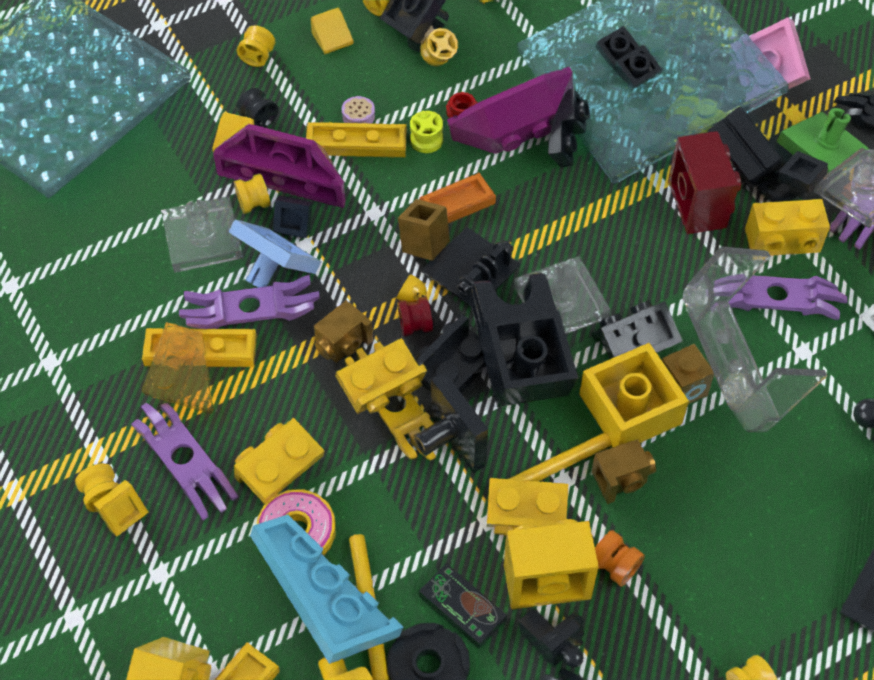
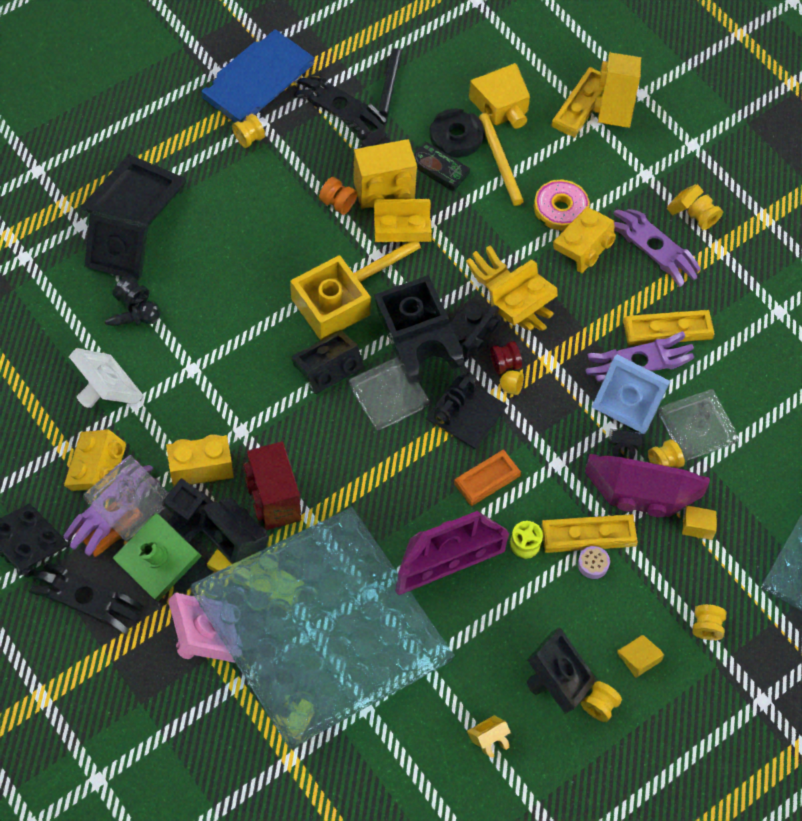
camera: 170 degrees right, 5 degrees up
(180, 369) = (675, 299): clear yellow wing -> none
(256, 106) = (686, 547): black wheel -> none
(327, 602) = (532, 149): medium azure wing -> none
(342, 332) = (559, 339): pearl gold brick -> none
(424, 229) = (511, 424): pearl gold brick -> none
(444, 41) = (529, 633): yellow wheel -> none
(454, 423) = (461, 261): black tile -> none
(459, 103) = (497, 565): red plate -> none
(568, 122) = (399, 533): black slope -> none
(622, 469) = (336, 246): pearl gold brick -> none
(627, 58) = (343, 611): black slope -> none
(690, 372) = (290, 322): pearl gold brick -> none
(754, 401) = (253, 312): clear windscreen -> none
(799, 291) = (193, 409): medium lavender piece -> none

